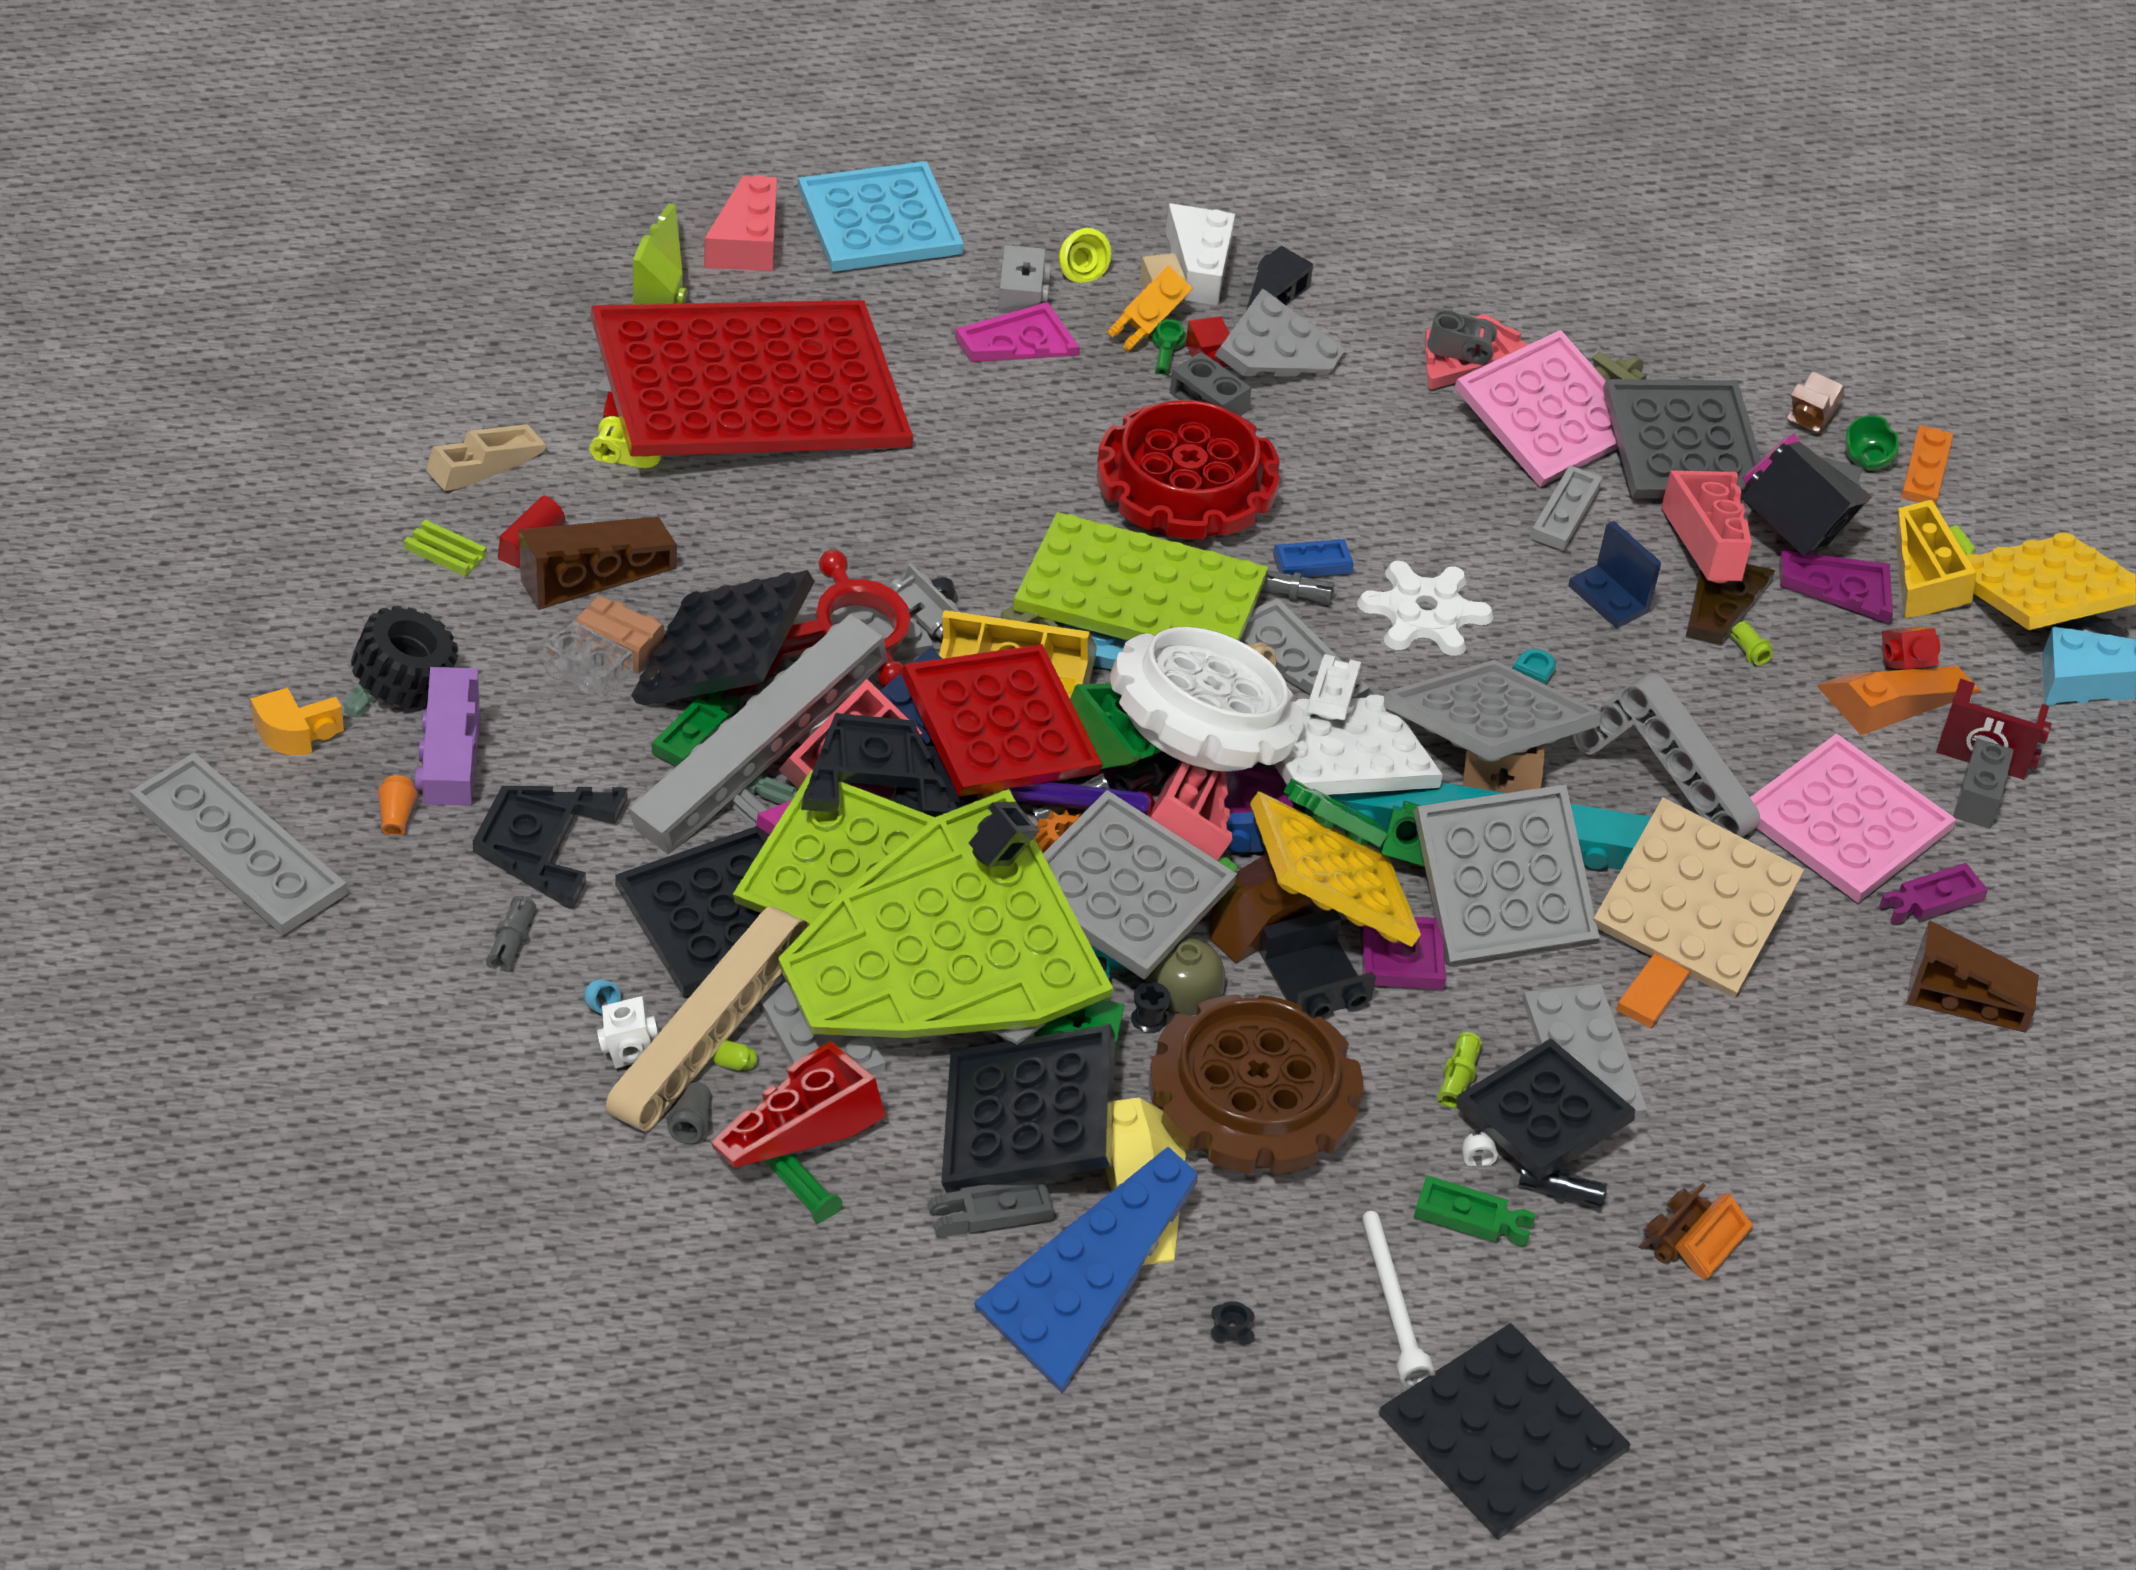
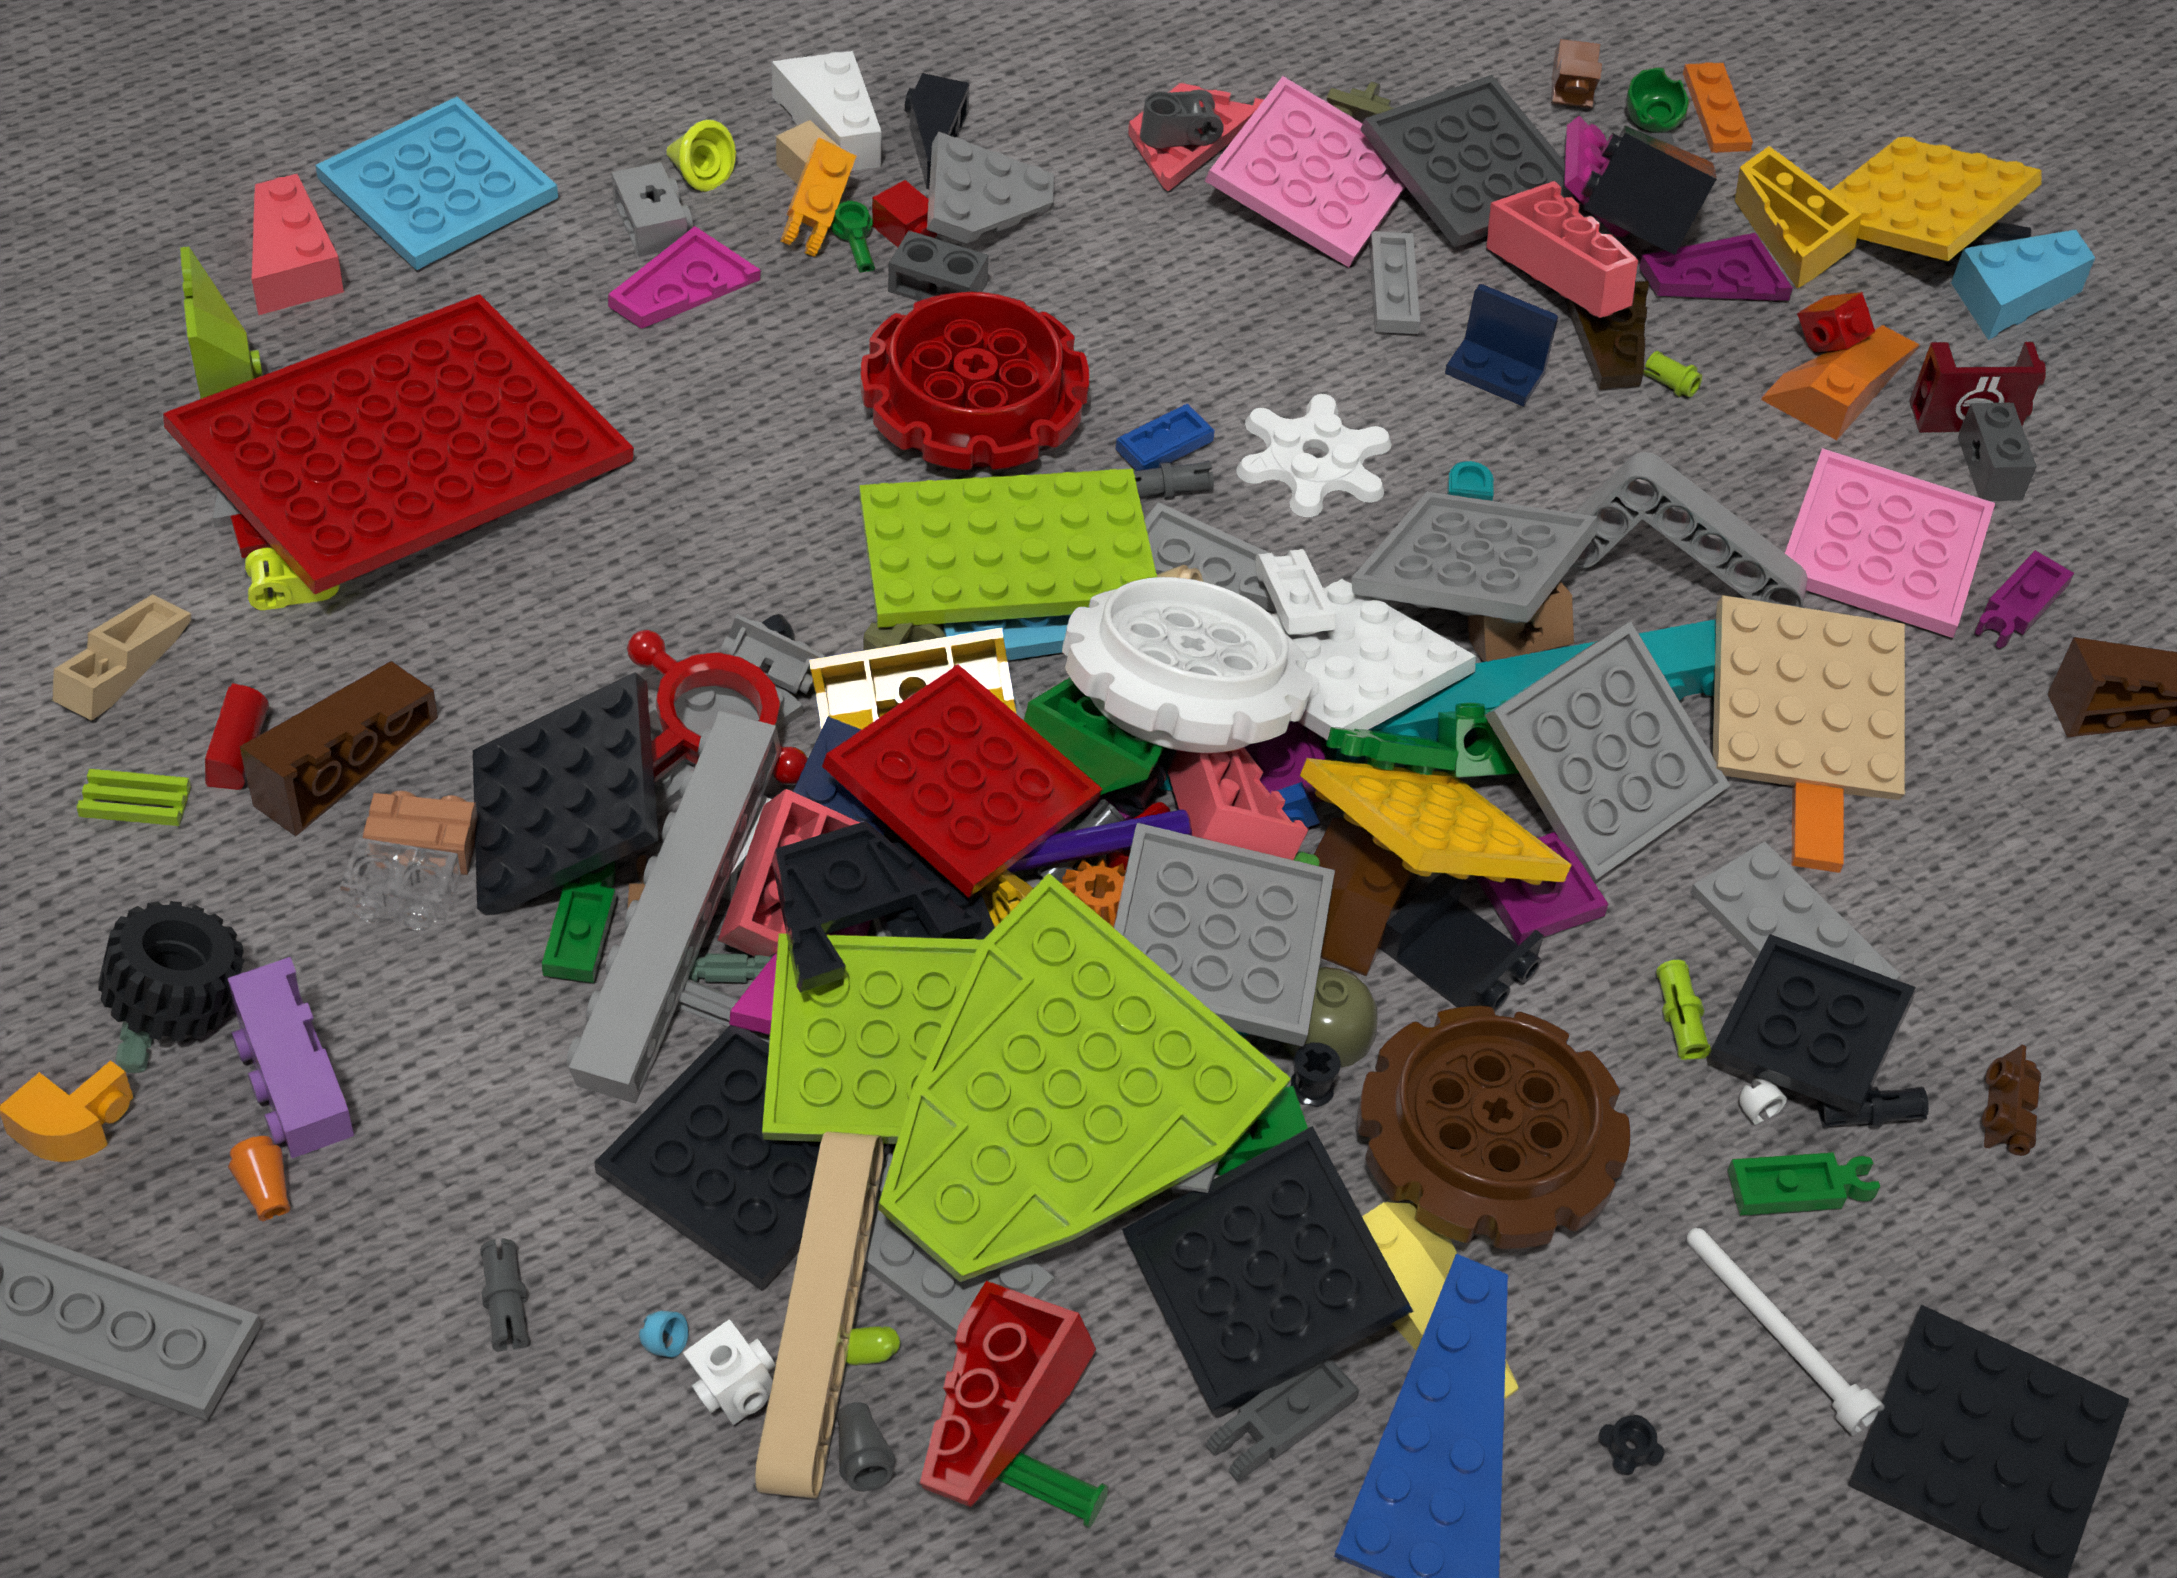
camera: 25 degrees left, 5 degrees up
(528, 827) = (447, 1142): black wing -> none
(1002, 835) = (1083, 939): black brick -> none
(1714, 1236) = (2058, 1101): orange tile -> none

